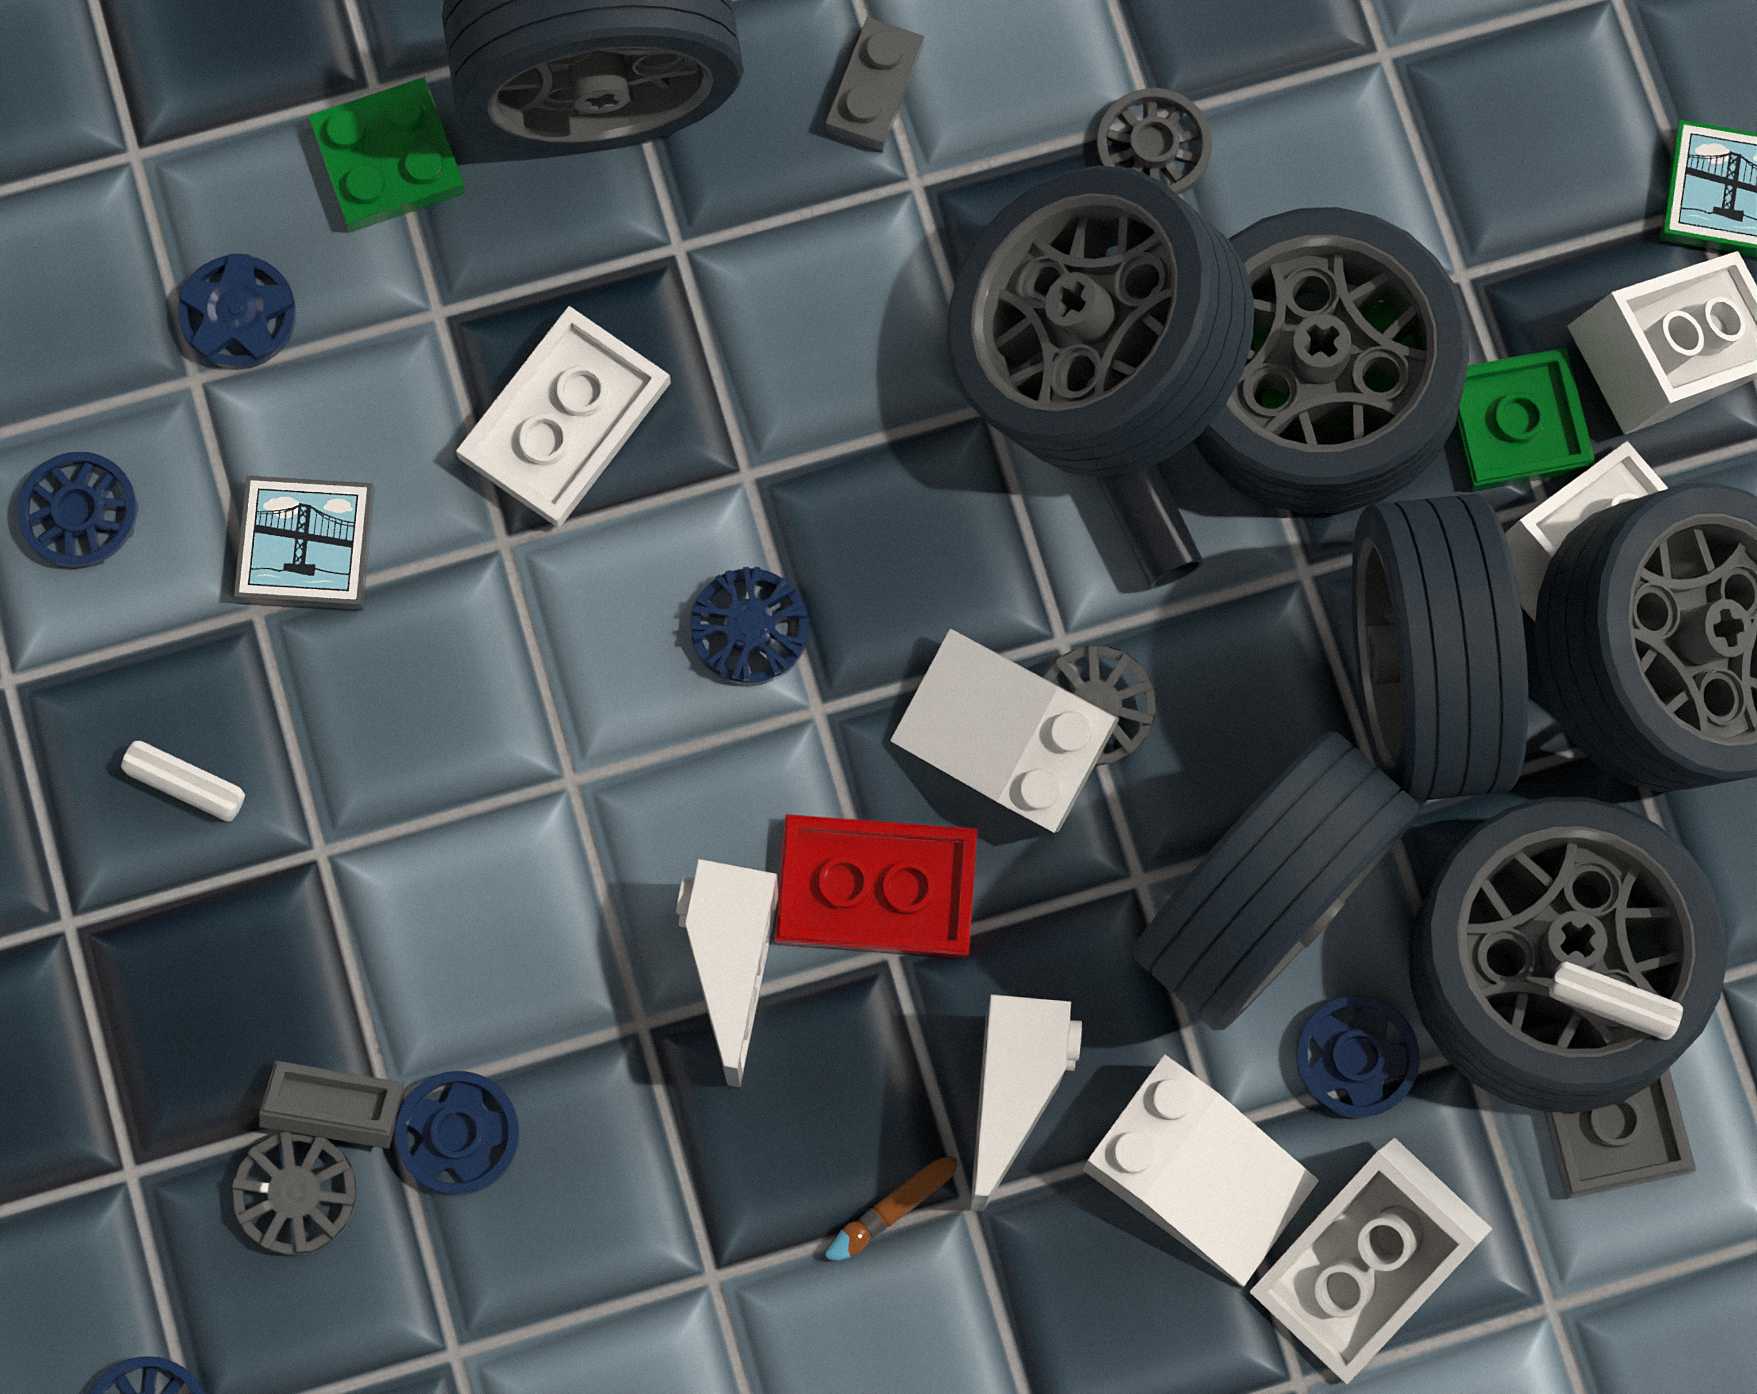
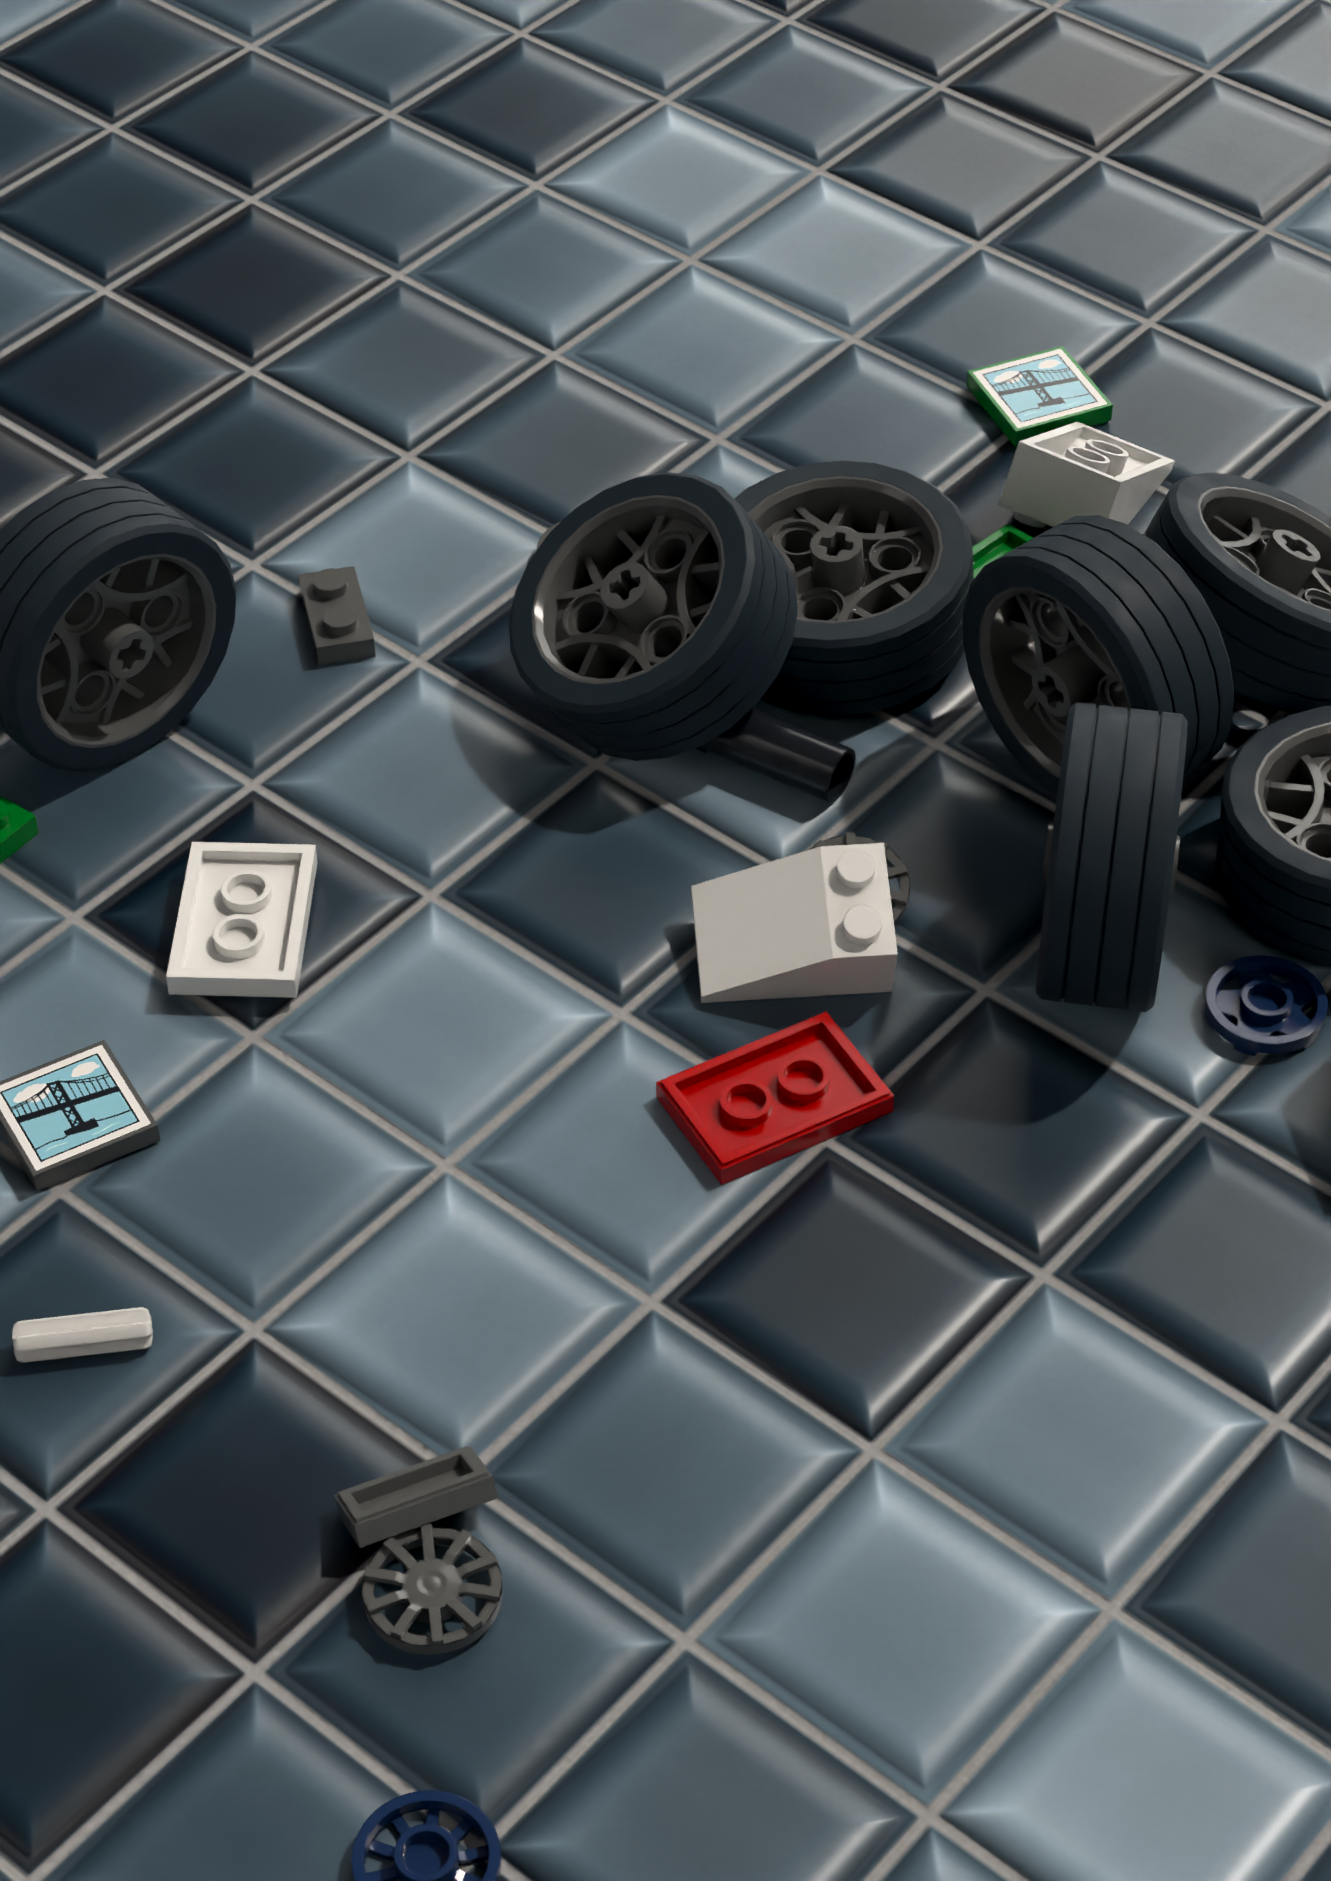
camera: 30 degrees left, 30 degrees down
(457, 1133) = (552, 1462): dark blue wheel -> none
(729, 933) = (698, 1179): white slope -> none
(749, 626) = (516, 981): dark blue wheel -> none
(857, 1234) = (973, 1340): dark orange piece -> none
(1022, 1065) = (1013, 1138): white slope -> none
(1201, 1171) = (1212, 1134): white slope -> none

